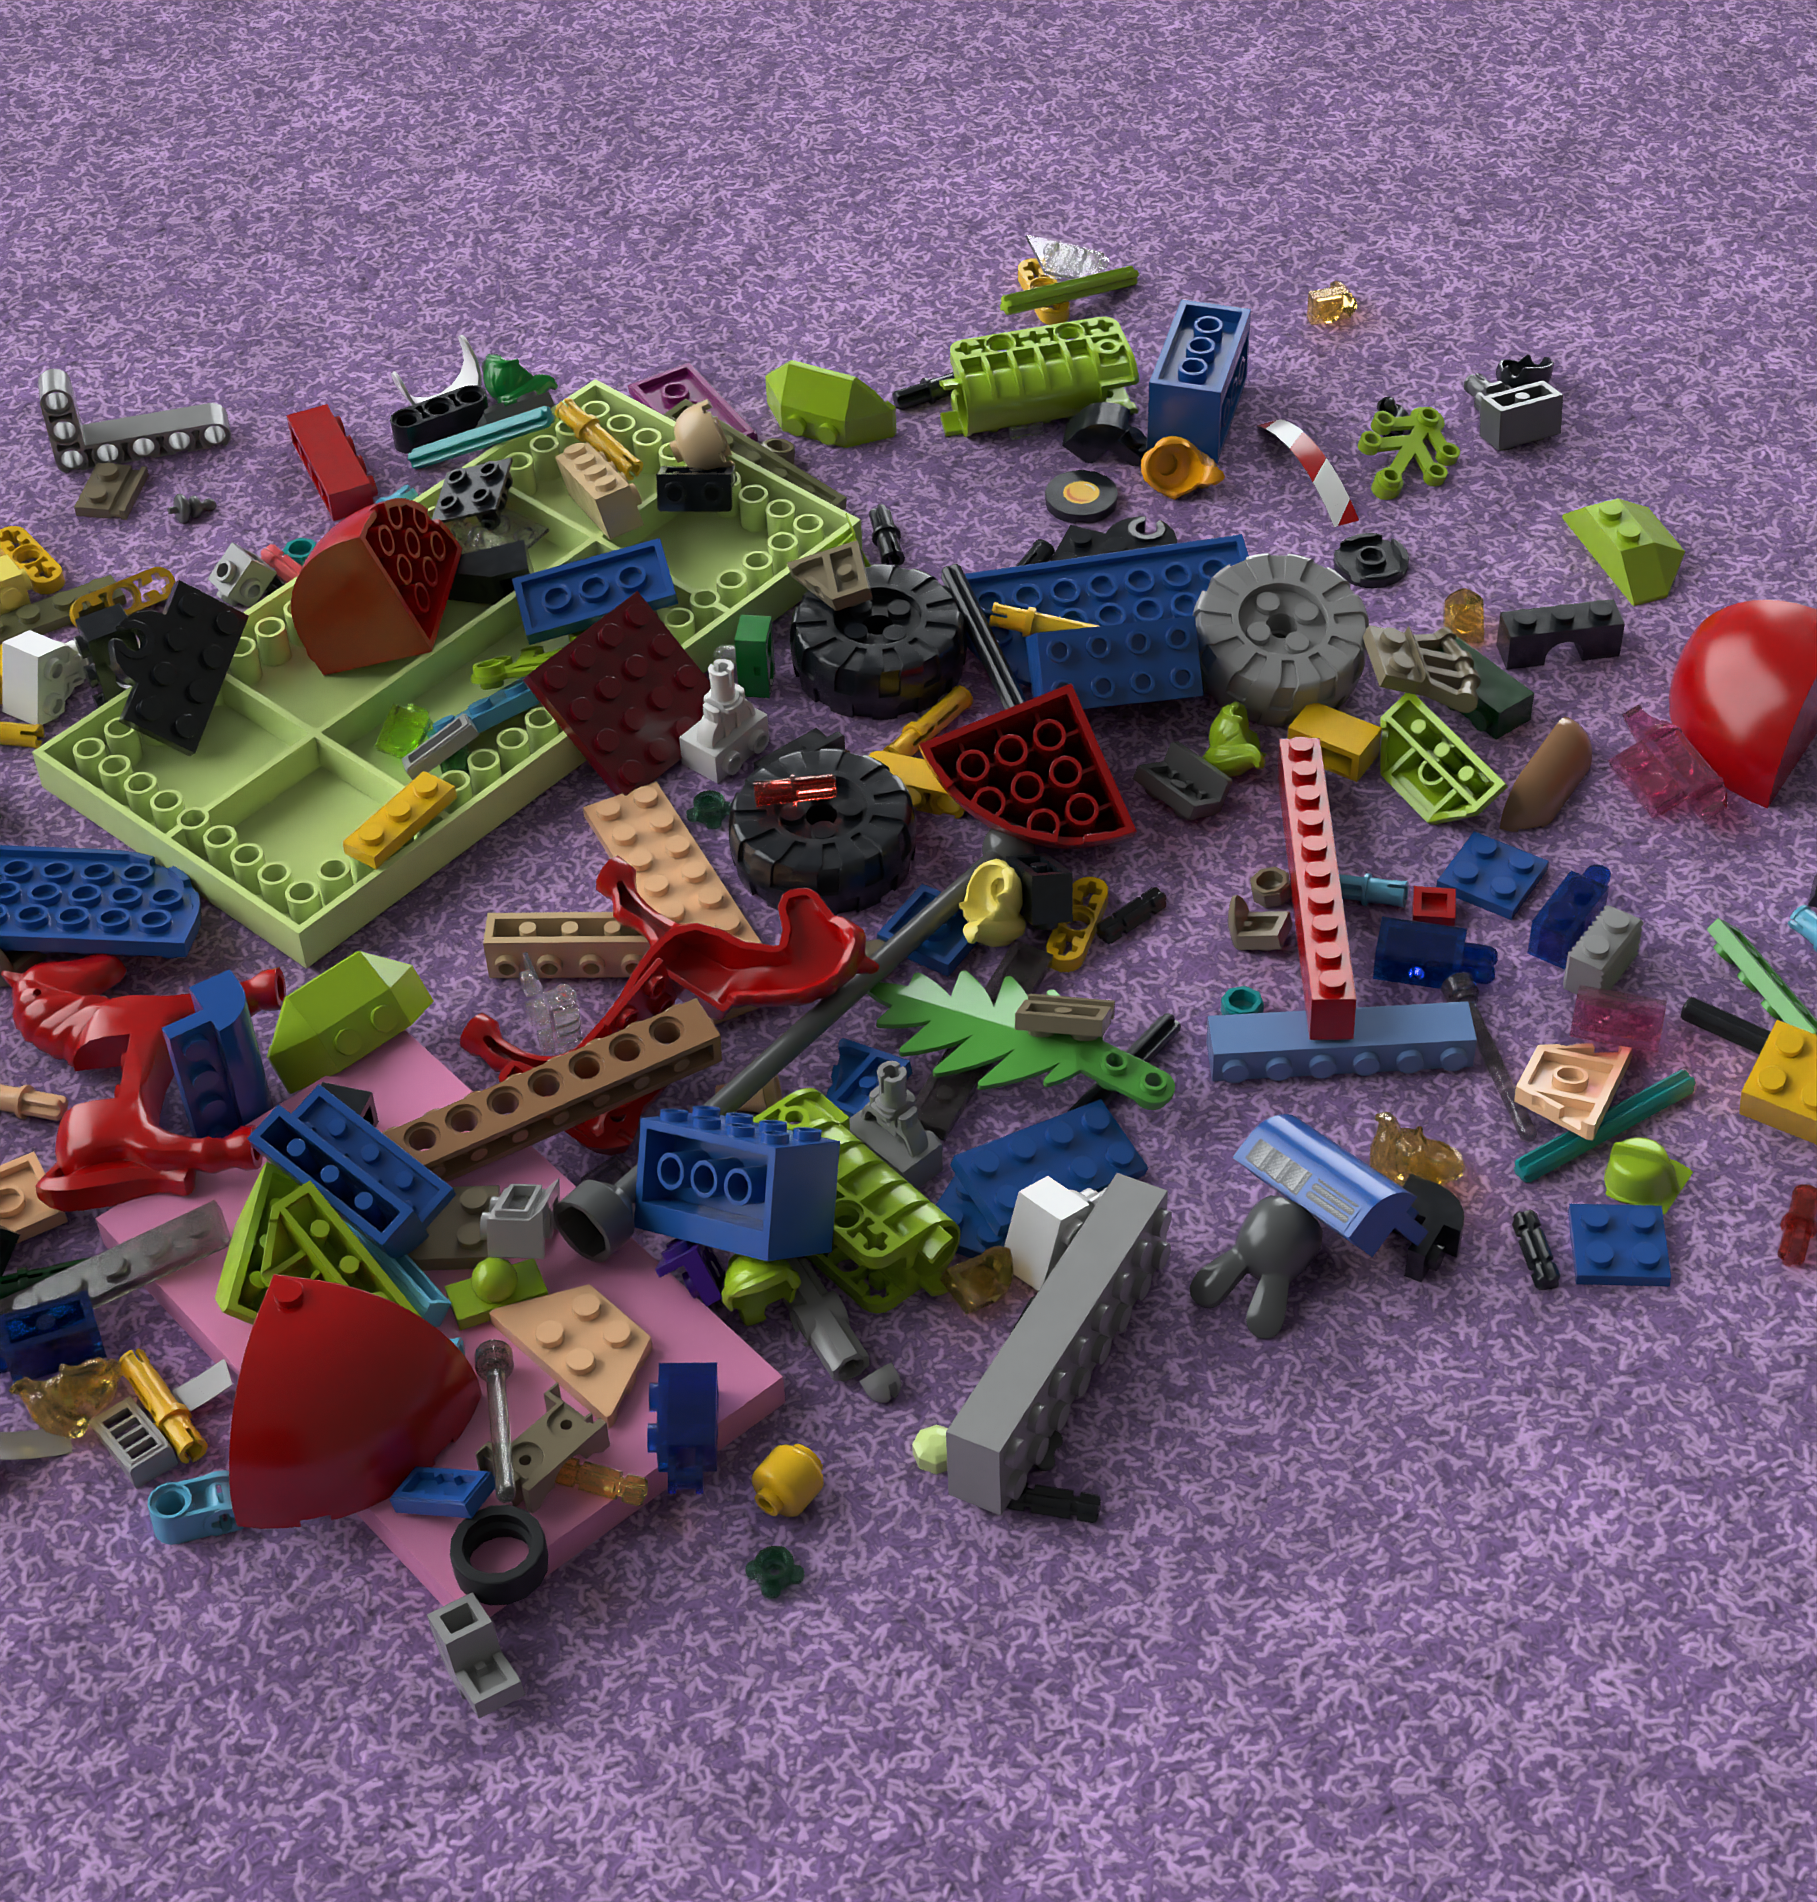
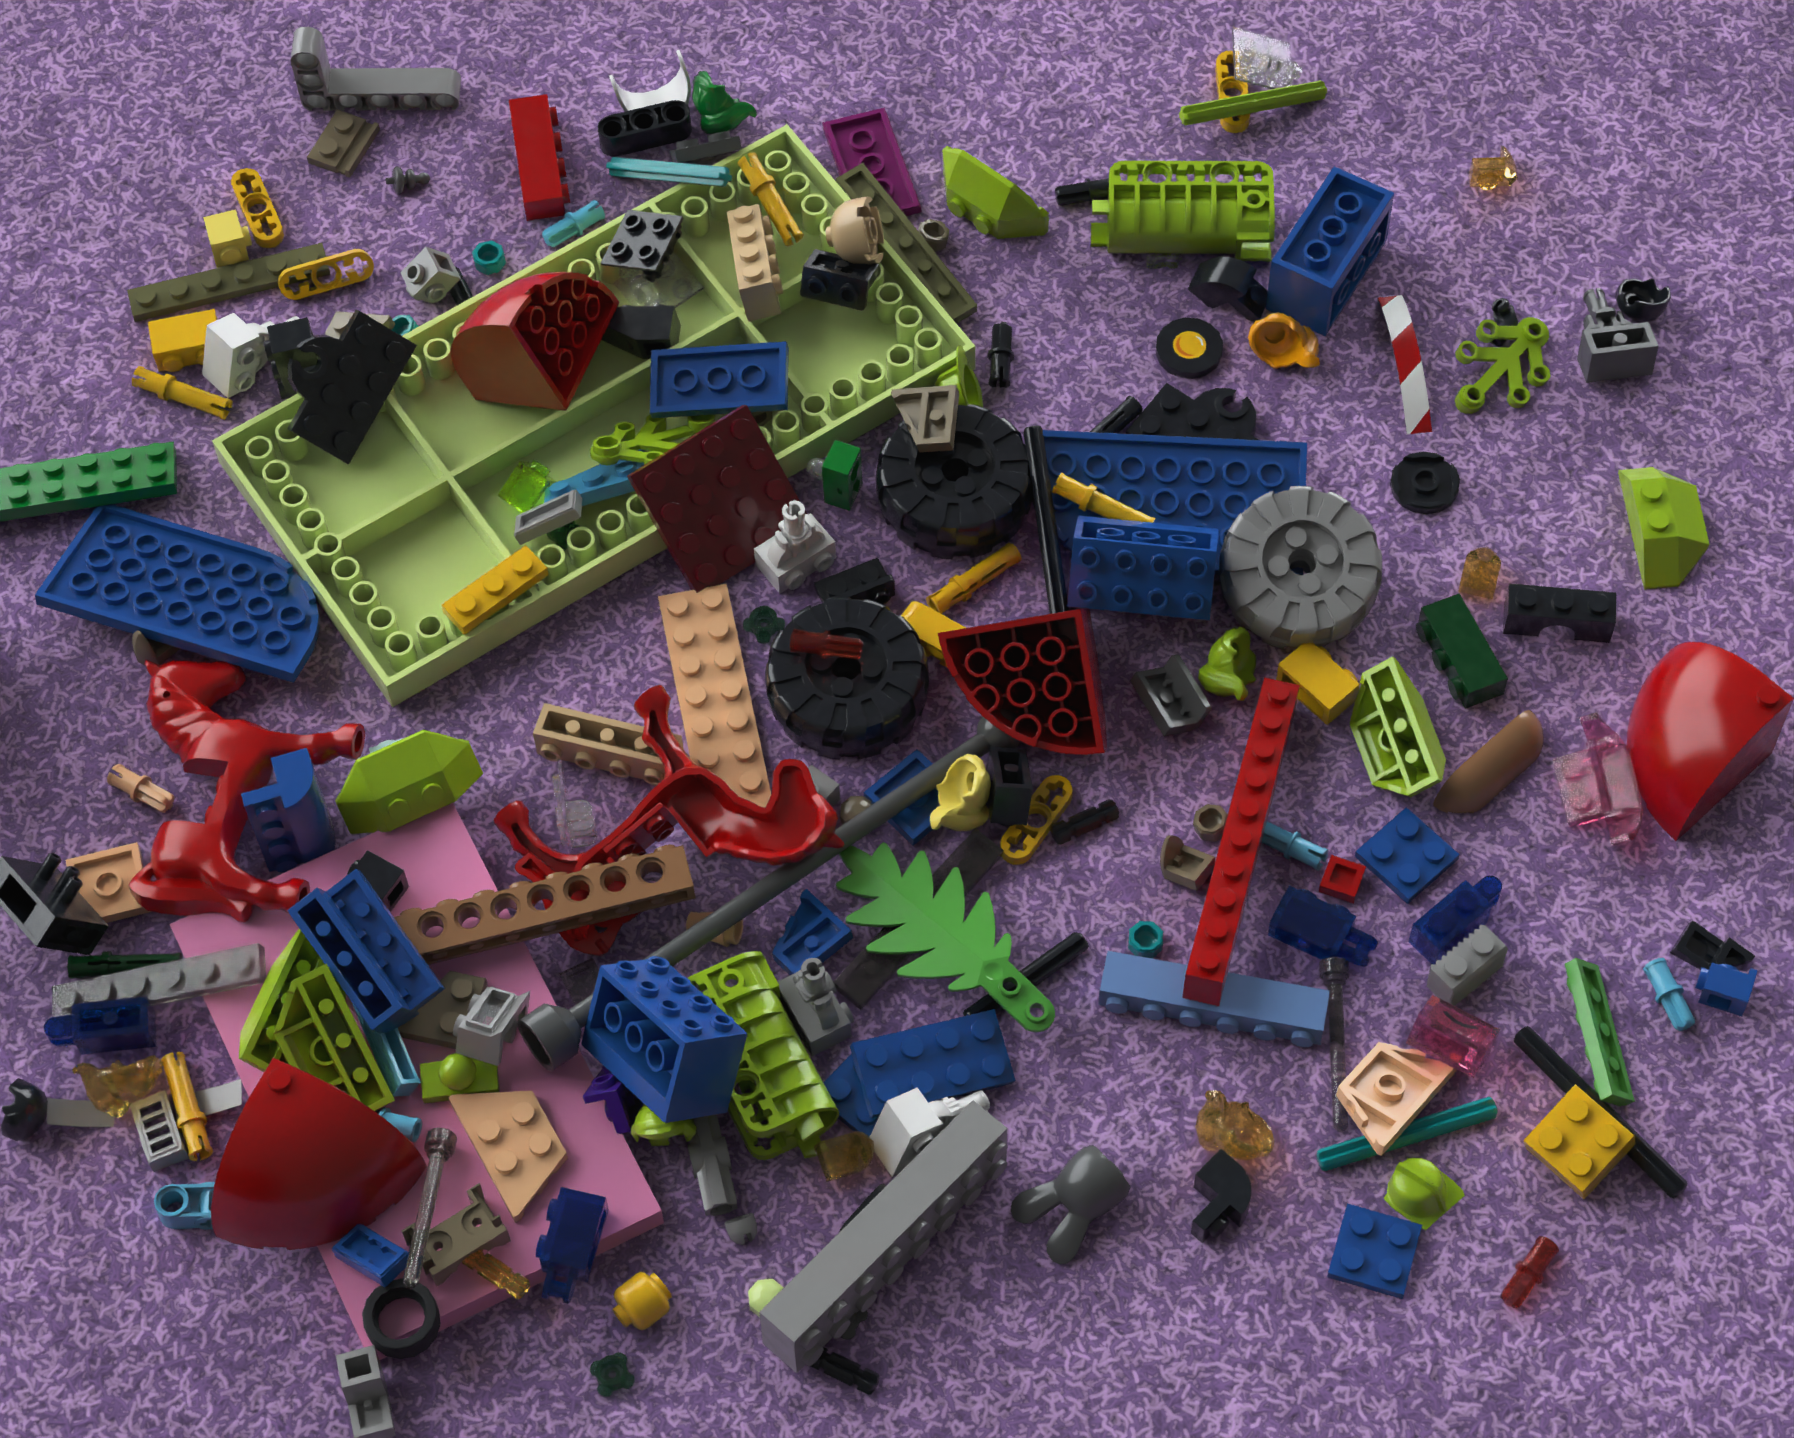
camera: 15 degrees right, 15 degrees up
(284, 565) = (470, 270): coral axle -> none
(1080, 1017) = (982, 931): dark tan plate -> none
(1330, 1183) = (1144, 1148): brick -> none
(1416, 667) = (1391, 630): dark tan plate -> none
(1536, 1250) = (1304, 1238): black axle -> none

